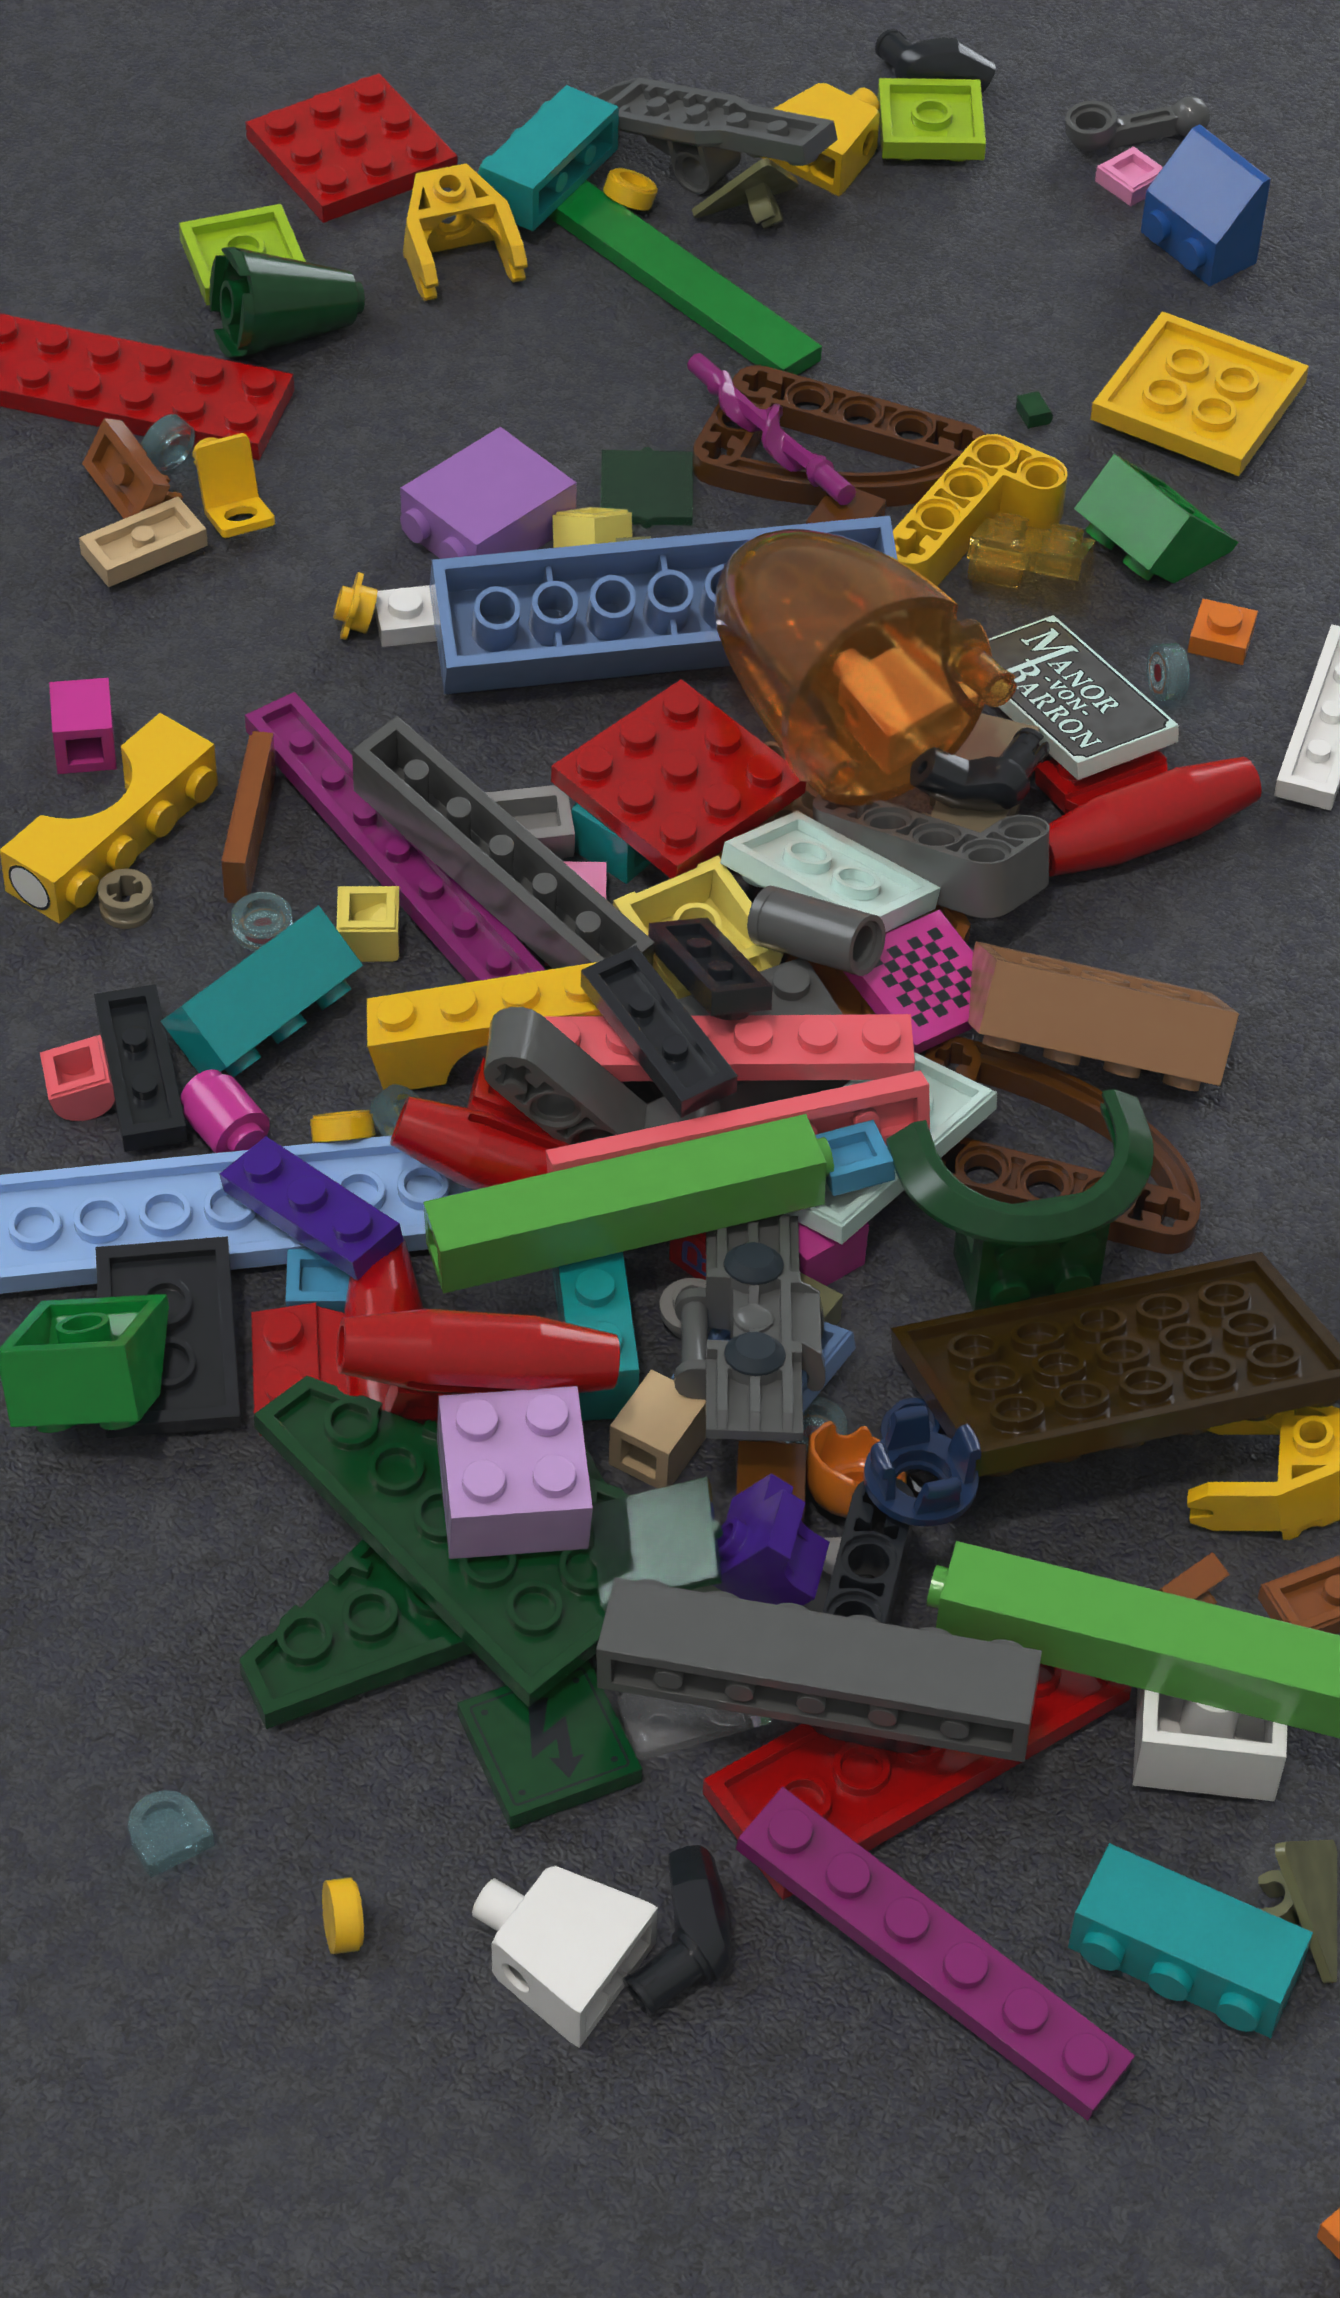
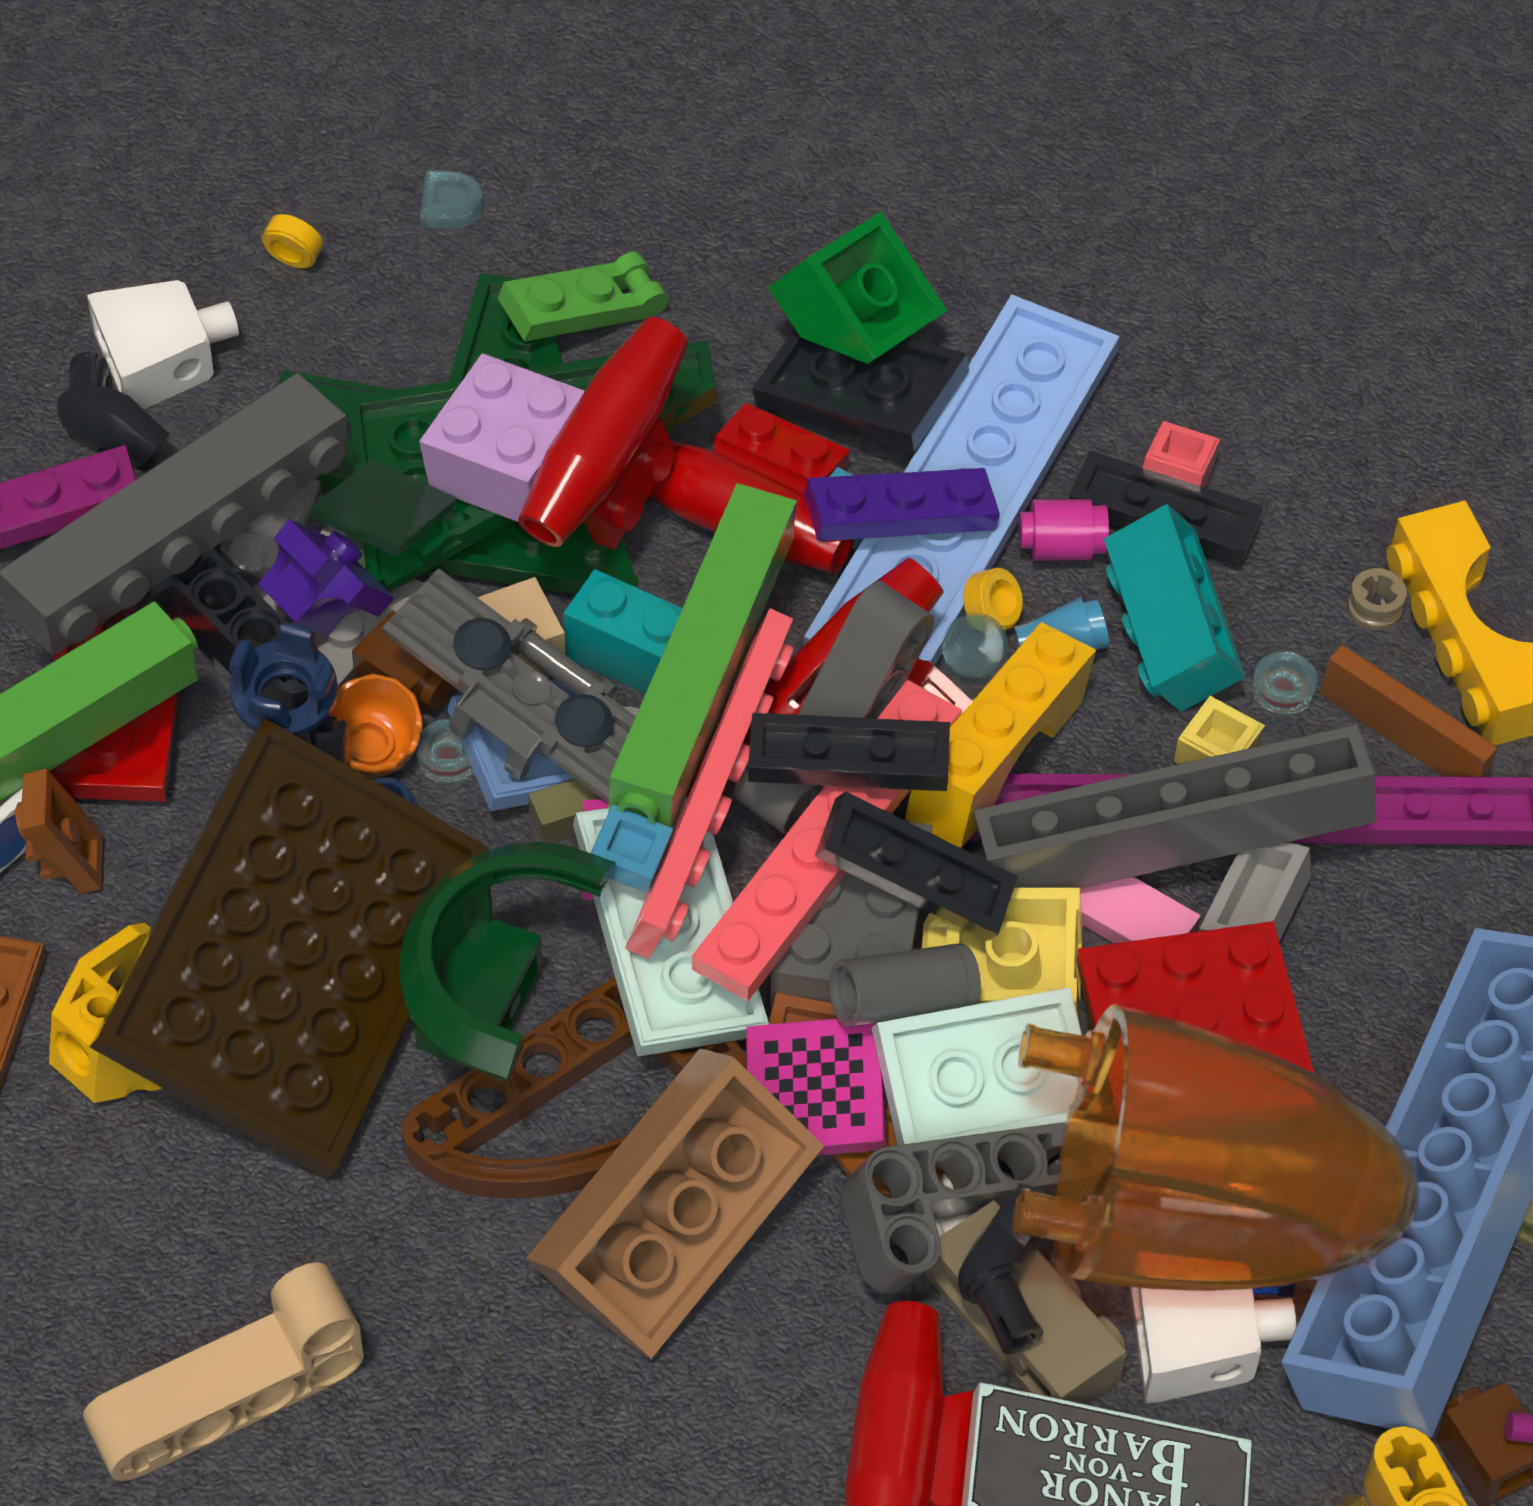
camera: 125 degrees right, 5 degrees up
(232, 1607) = (583, 298): none -> bright green plate
(333, 1066) = (1076, 619): none -> dark azure cone

